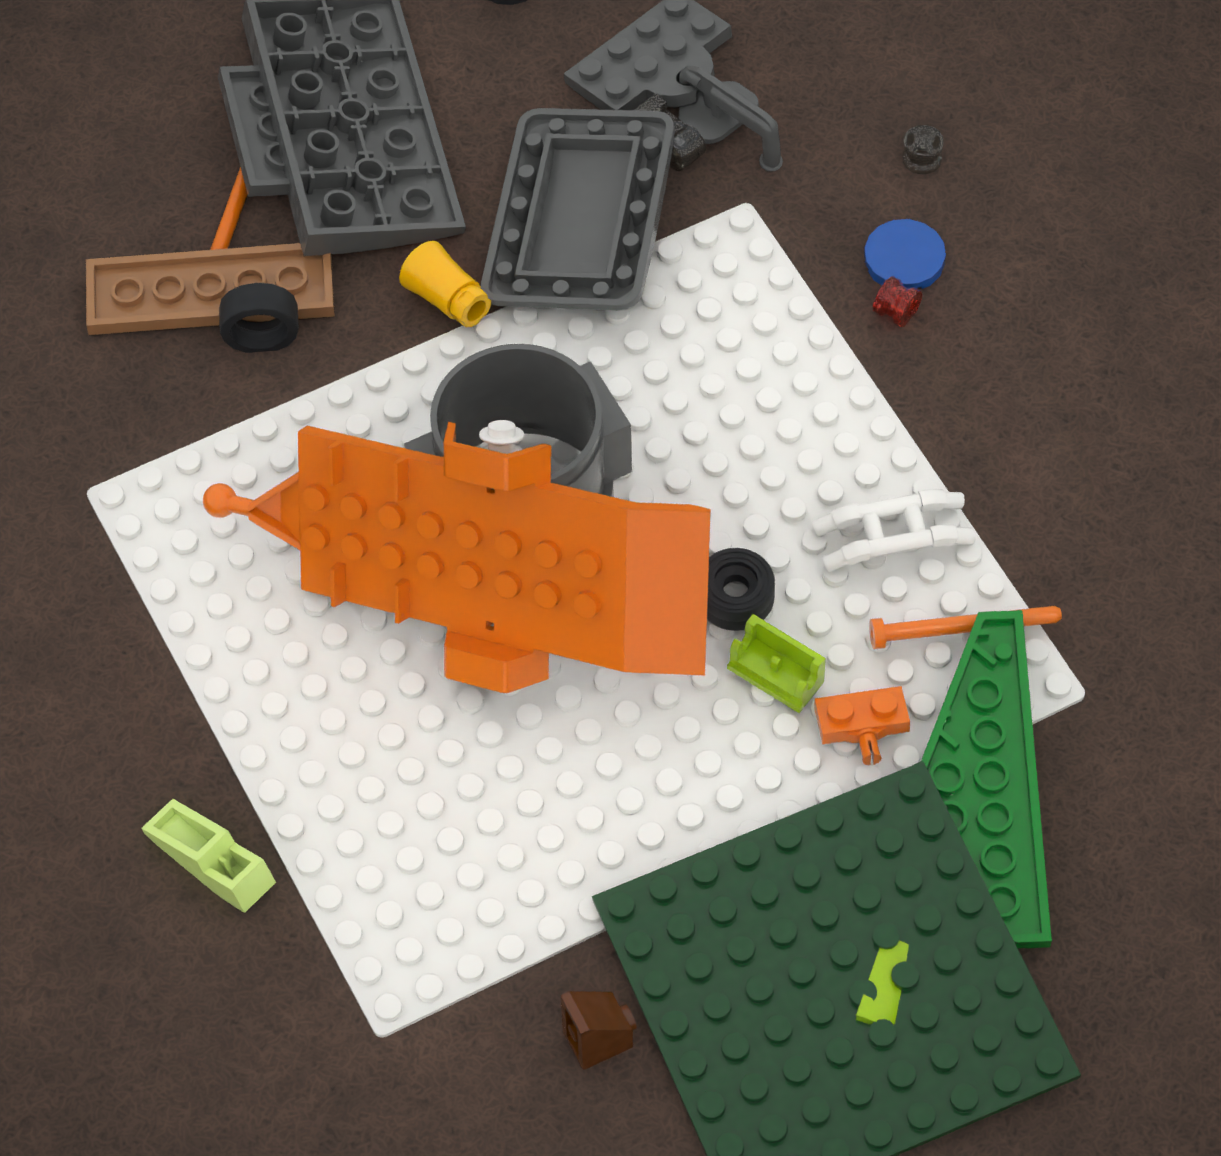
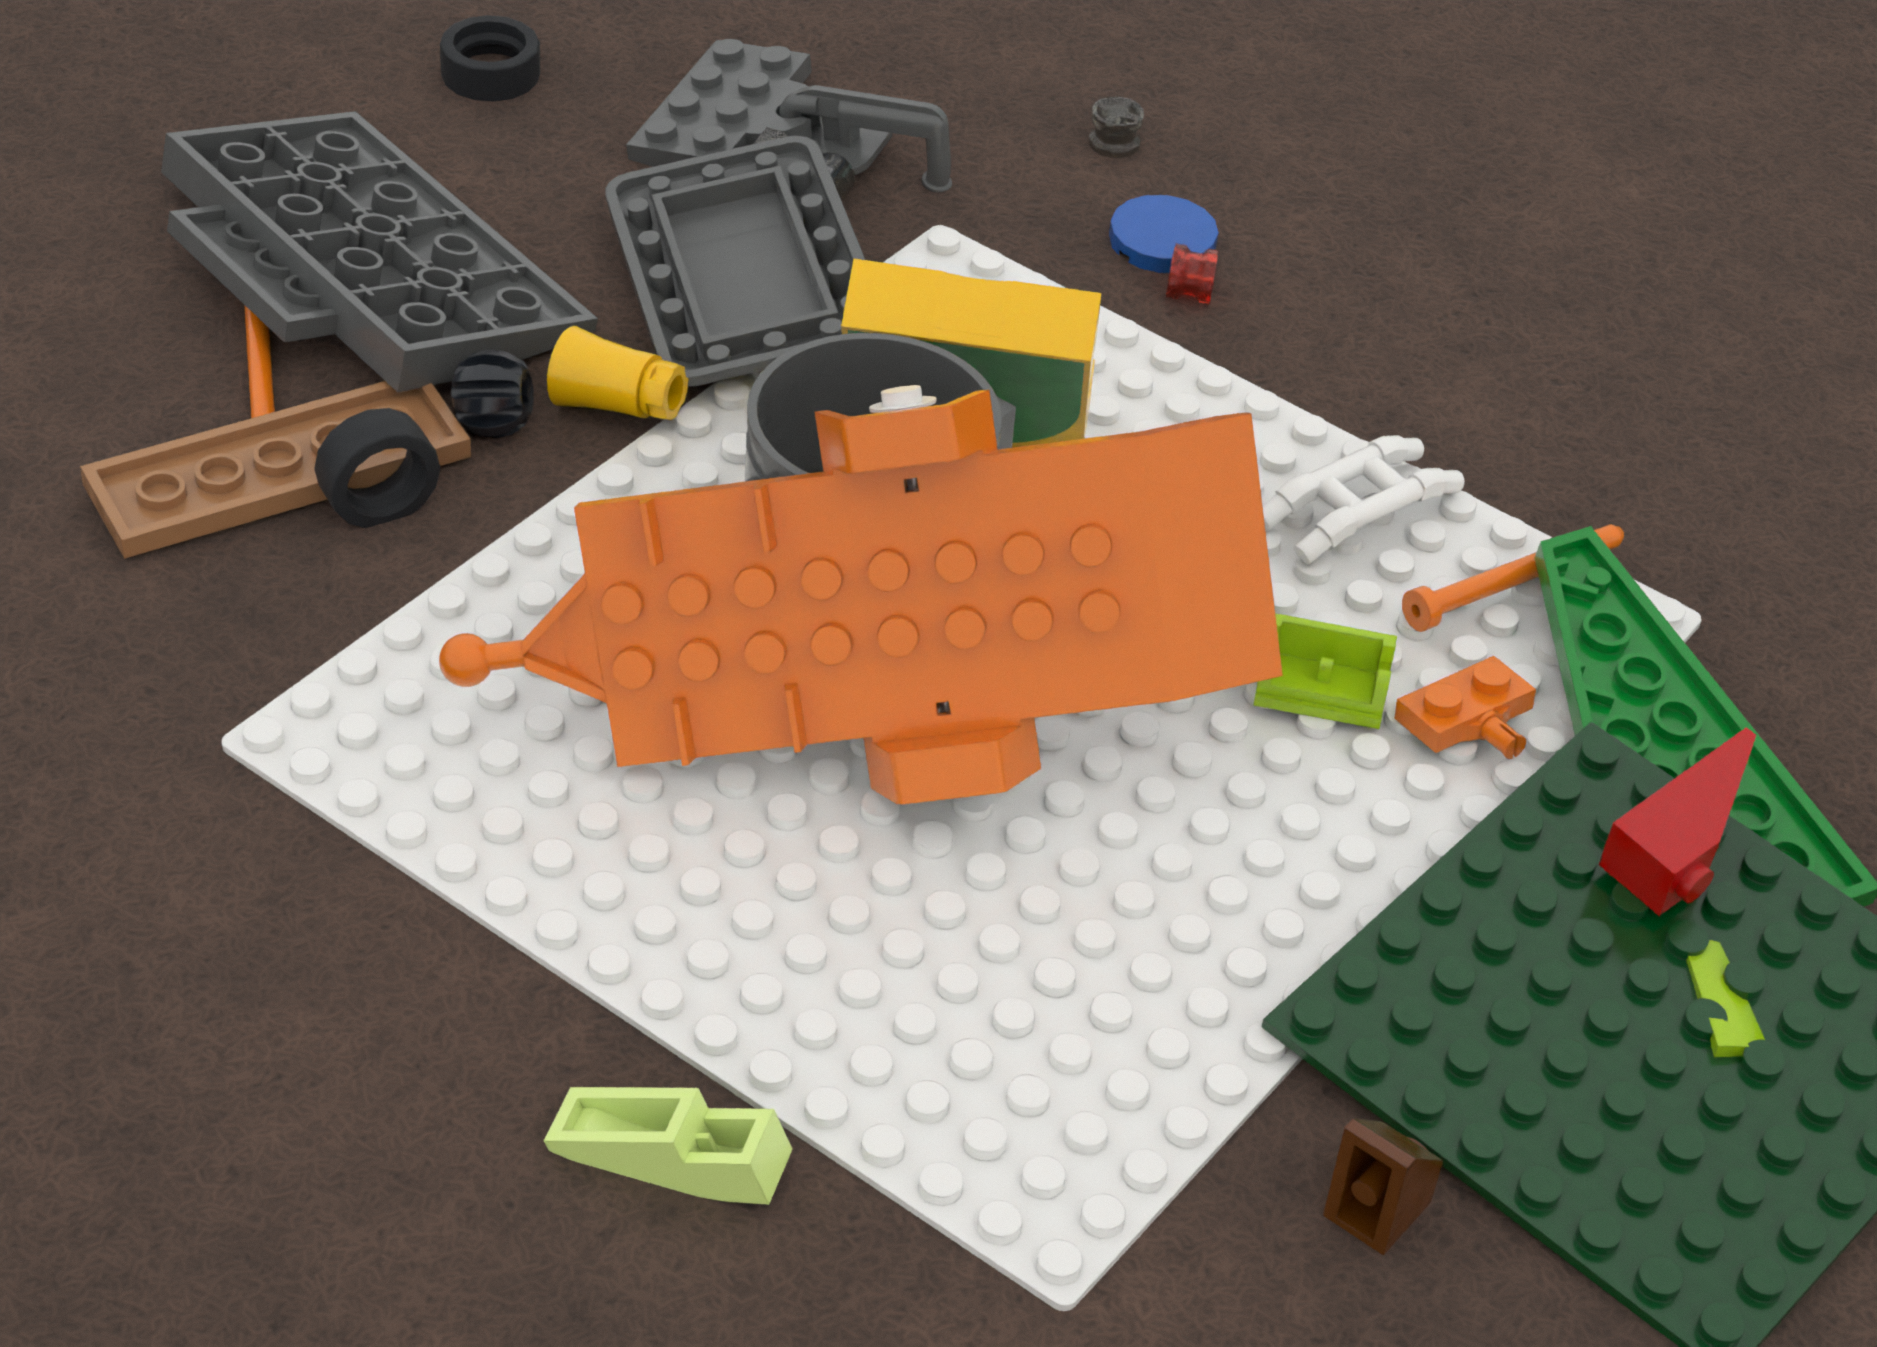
camera: 30 degrees left, 15 degrees down
(362, 275) = (492, 393): none -> black piece
(646, 362) = (1020, 336): none -> yellow tile
(912, 865) = (1671, 837): none -> red slope

